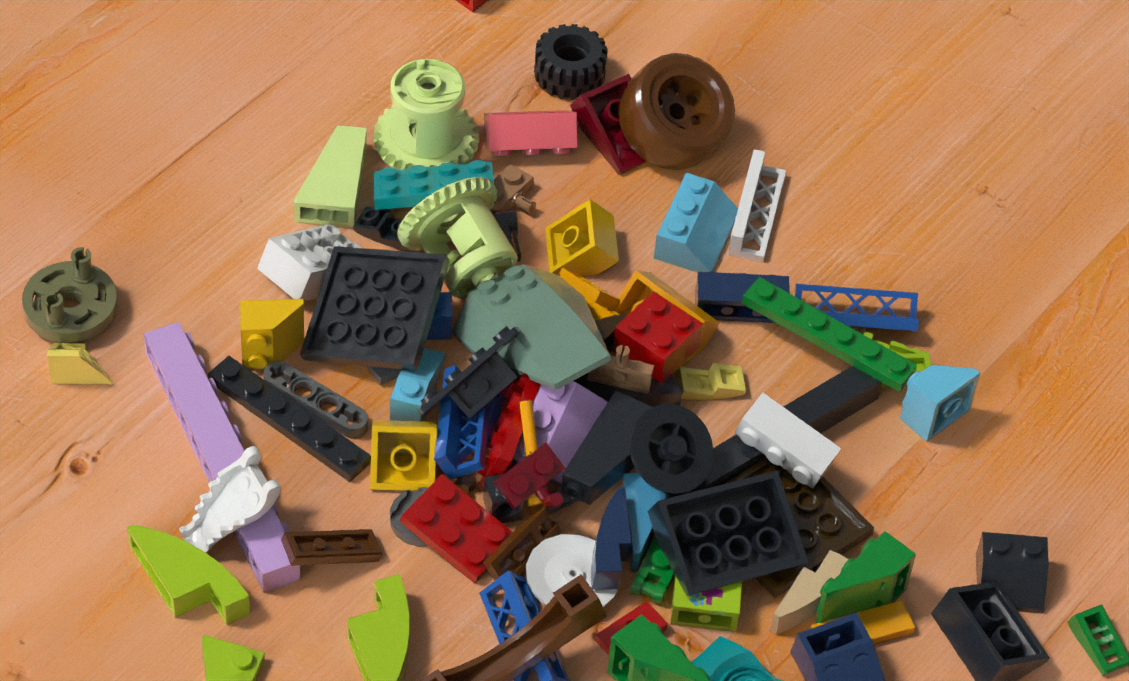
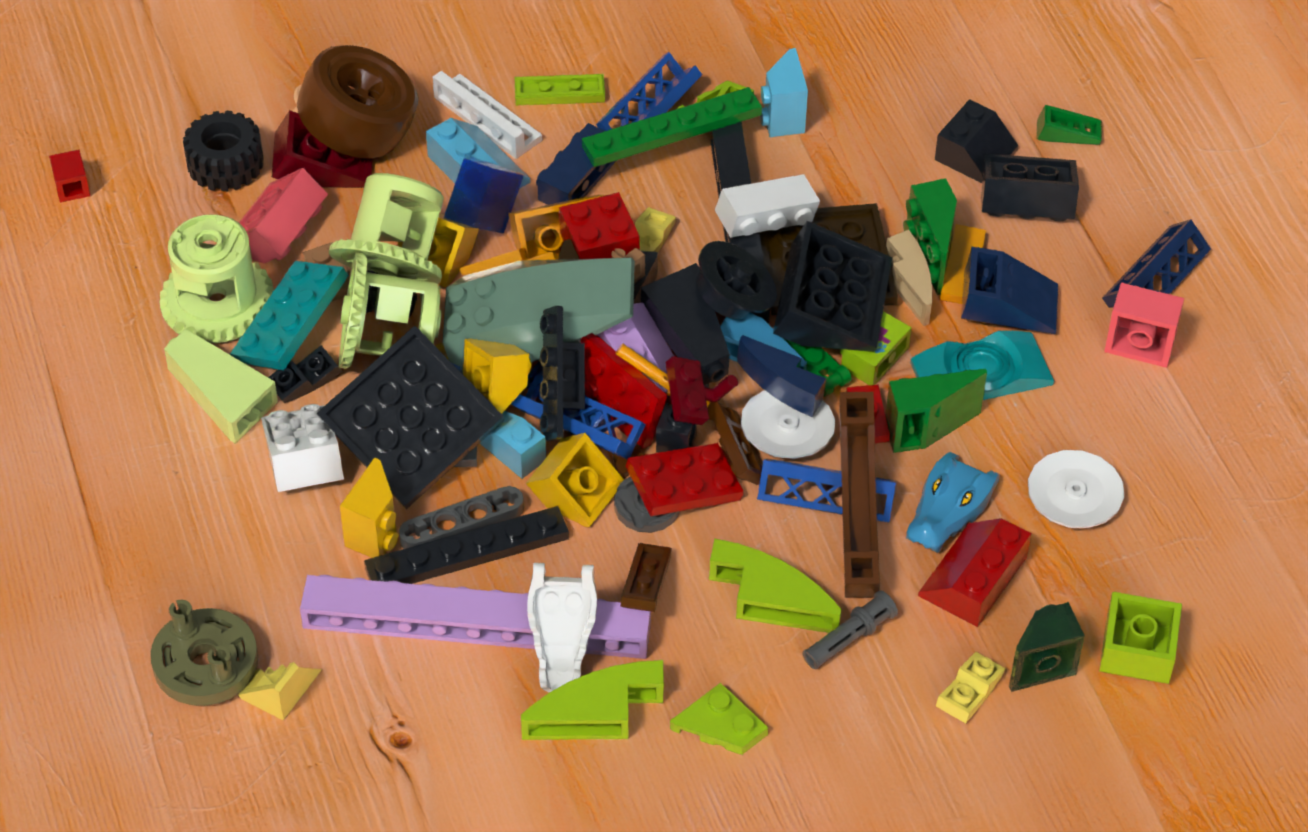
camera: 55 degrees left, 0 degrees up
(457, 339) = (496, 370): none -> yellow slope
(541, 185) = (394, 211): none -> yellowish green piece
(644, 238) = (483, 195): none -> clear blue slope
(827, 245) = (559, 89): none -> lime tile

